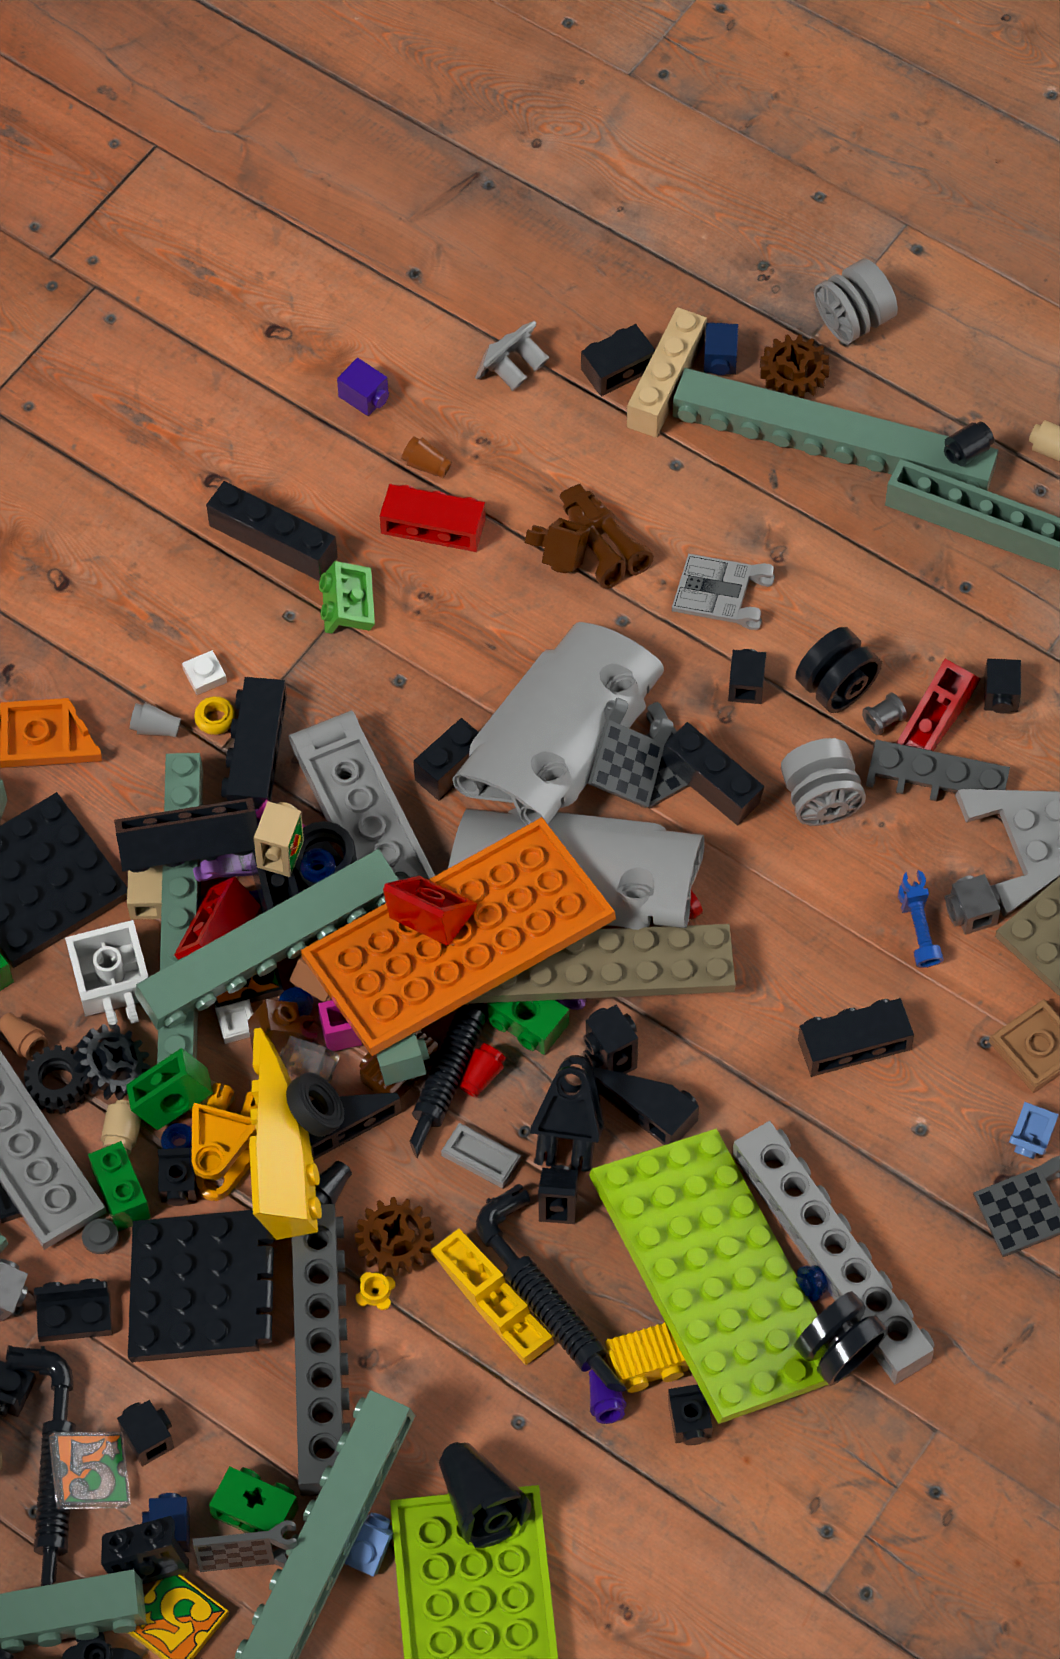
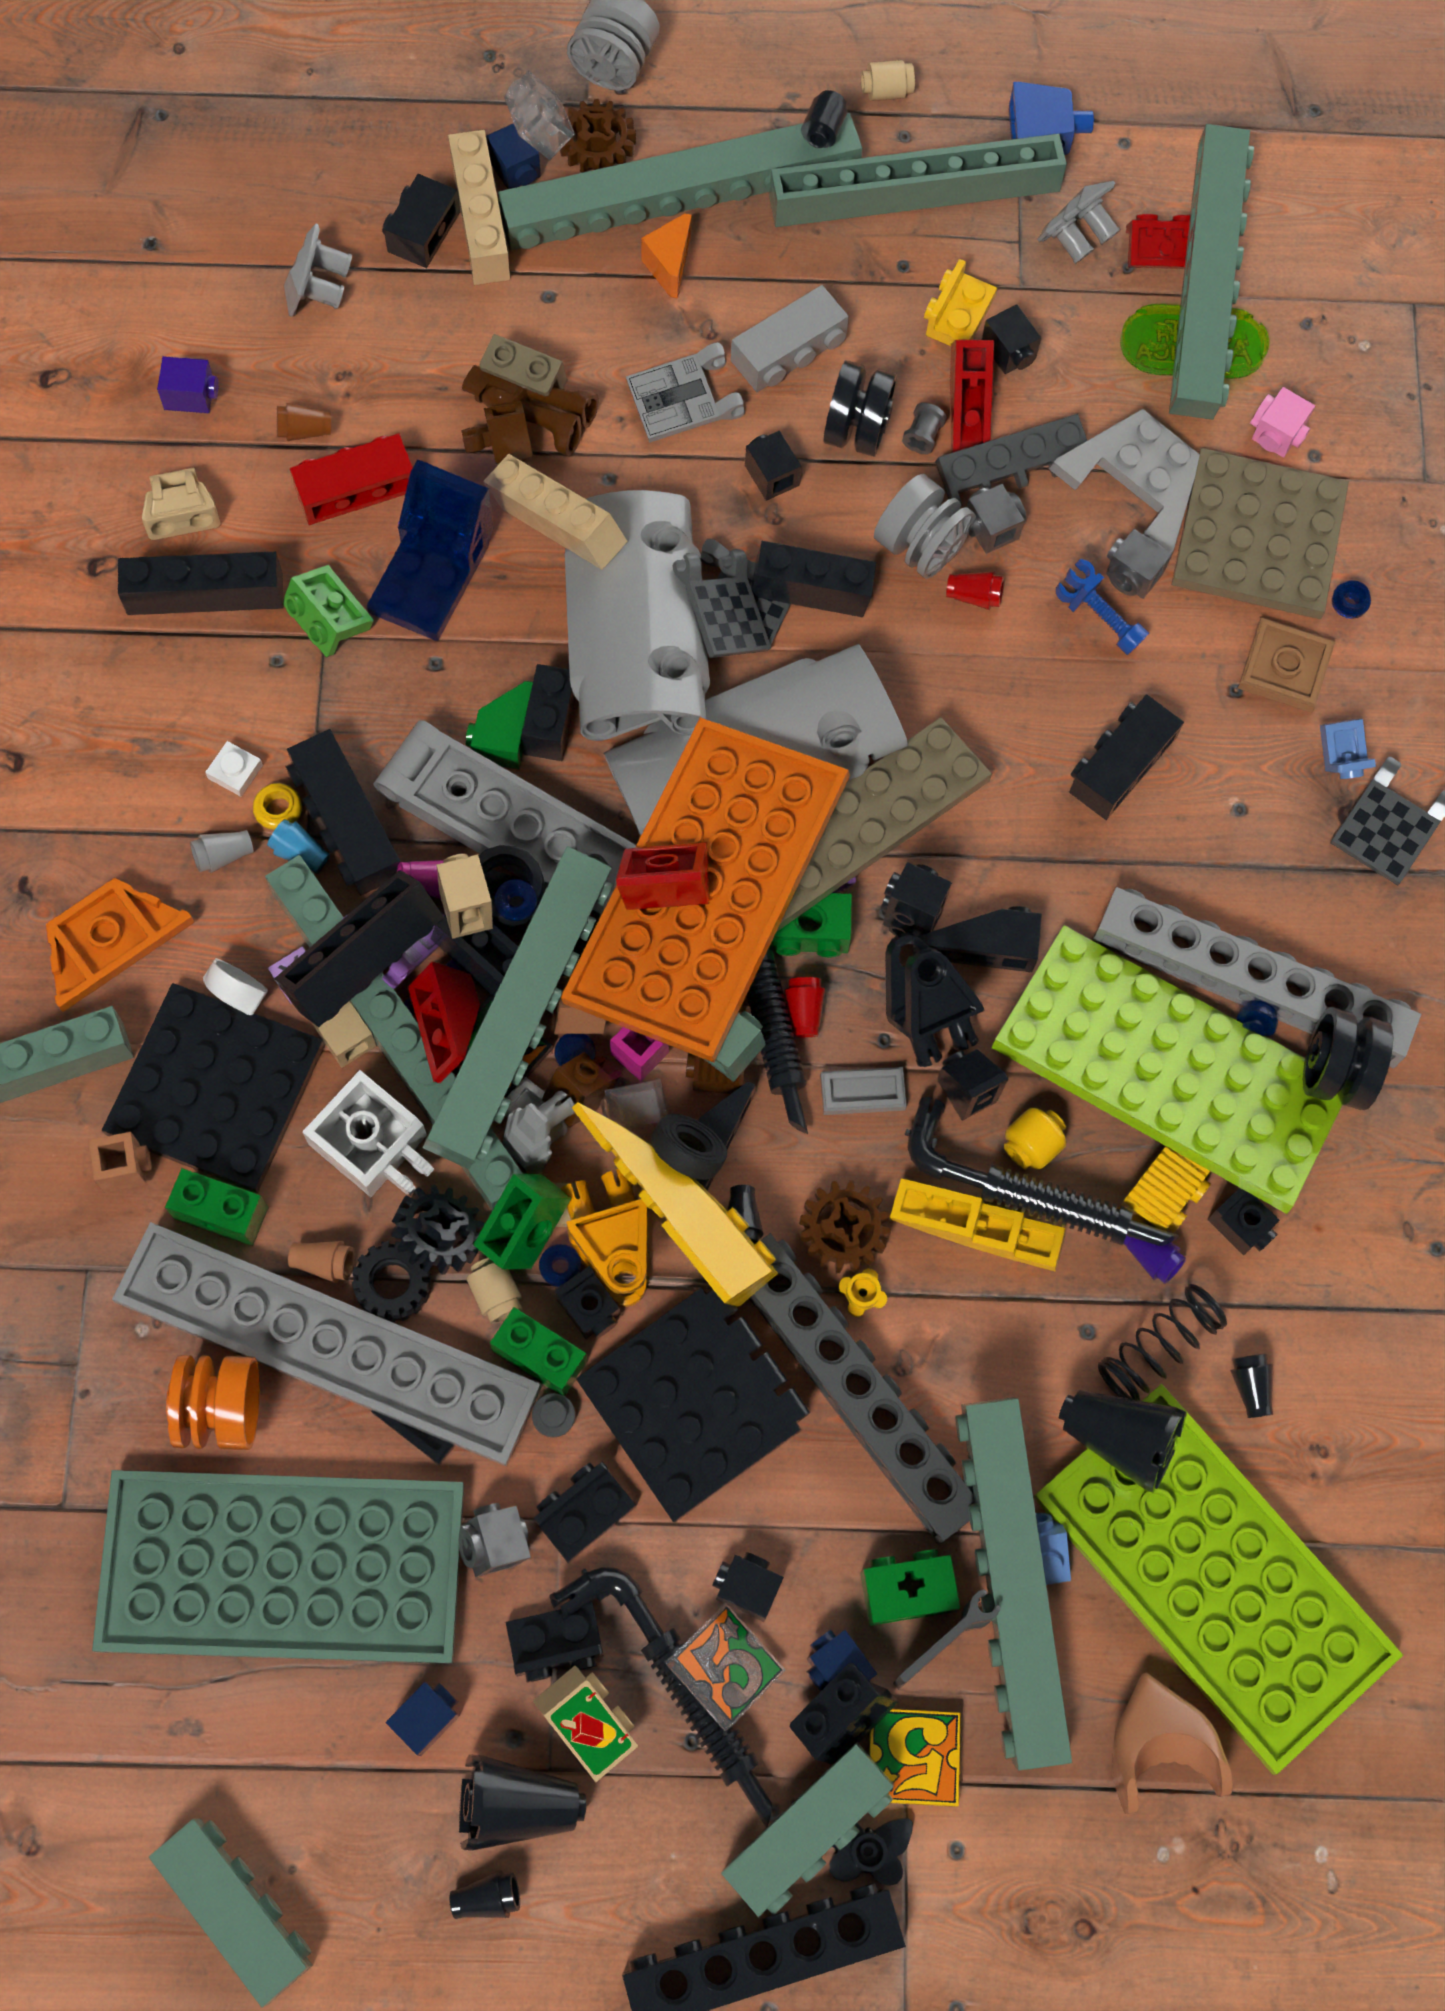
camera: 40 degrees left, 10 degrees up
(95, 818) = (234, 986): none -> white hat
(207, 743) = (292, 840): none -> dark azure cone
(224, 1036) = (533, 1130): none -> light grey connector
(296, 468) = (178, 505): none -> tan piece
(400, 747) = (500, 727): none -> green slope
(461, 600) = (443, 540): none -> clear blue bracket
(552, 618) = (555, 511): none -> tan brick
(577, 1261) = (1035, 1138): none -> yellow head
(609, 1530) = (1254, 1382): none -> black cone
(611, 504) = (523, 366): none -> dark tan bracket
(611, 1457) = (1199, 1313): none -> black piece
(756, 327) = (538, 115): none -> clear brick
(787, 479) = (666, 252): none -> orange slope
(830, 592) = (789, 339): none -> light grey brick
(837, 853) = (976, 589): none -> red cone
(888, 808) = (998, 517): none -> flat silver brick
(981, 638) = (959, 307): none -> yellow bracket

